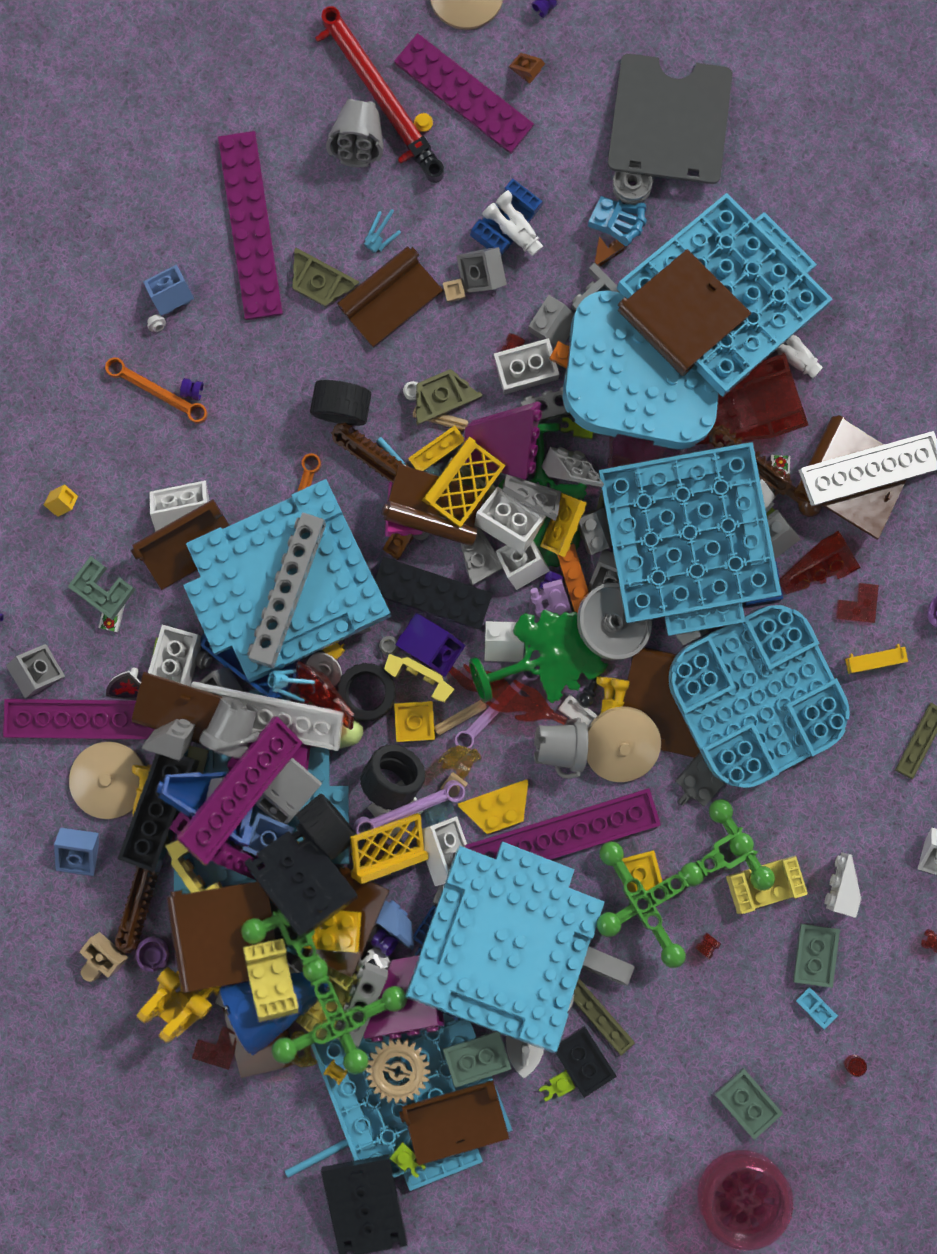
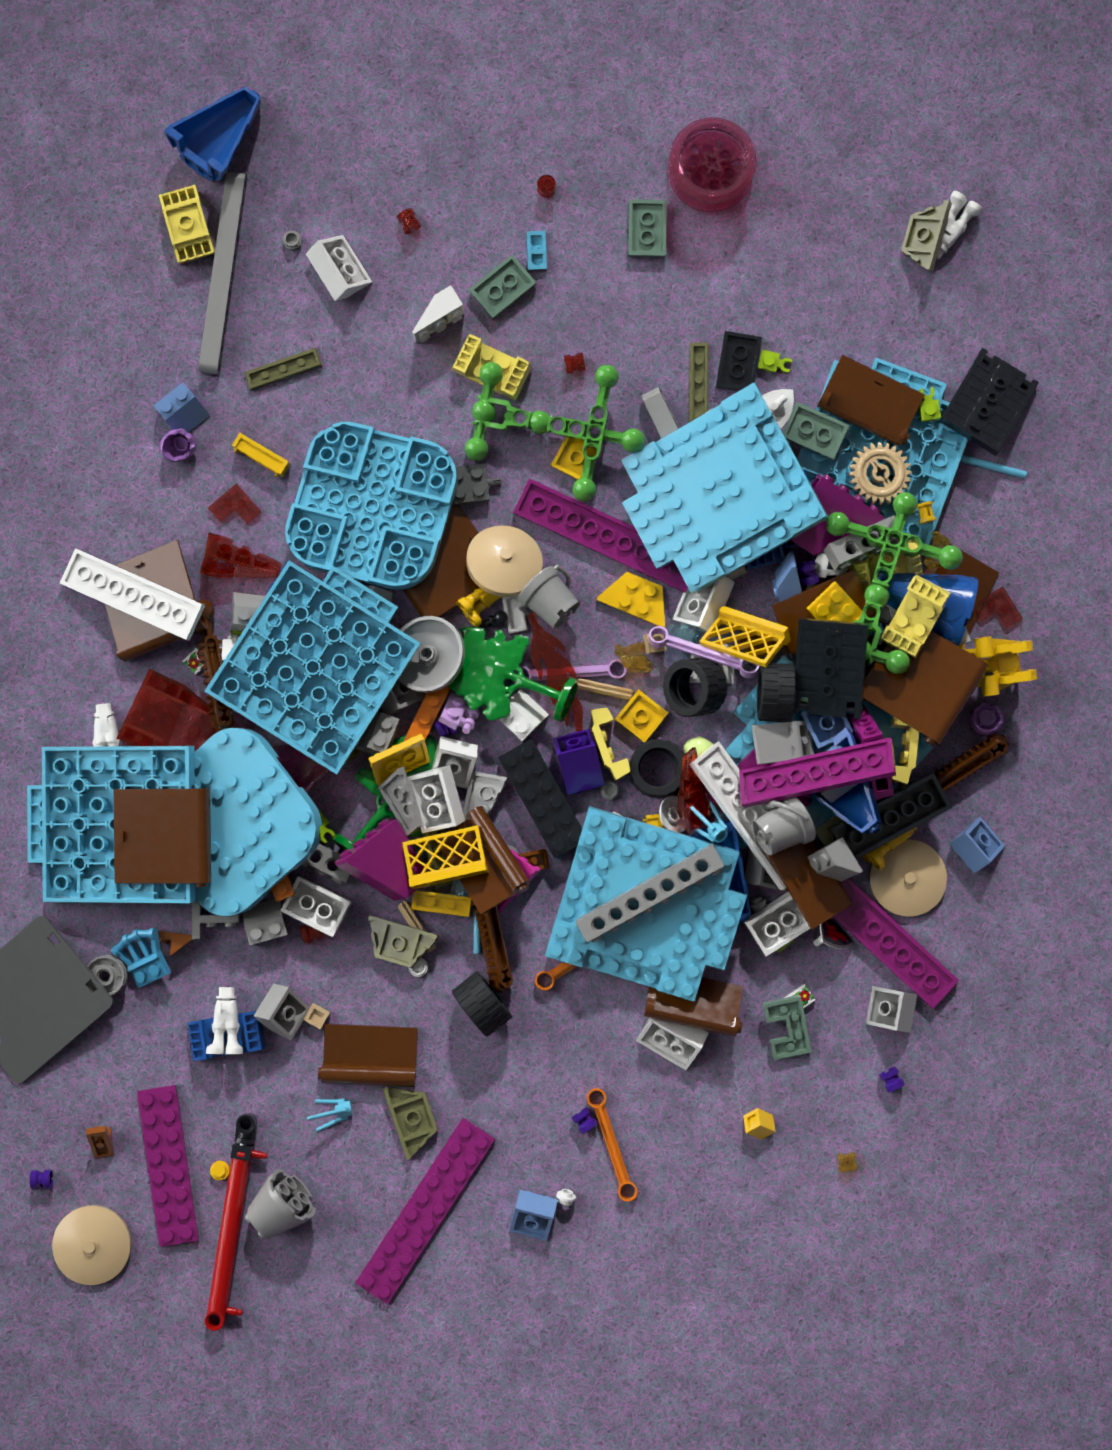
camera: 140 degrees left, 0 degrees up
(101, 958) = (1026, 749): tan brick -> none
(570, 466) = (355, 796): light grey slope -> none

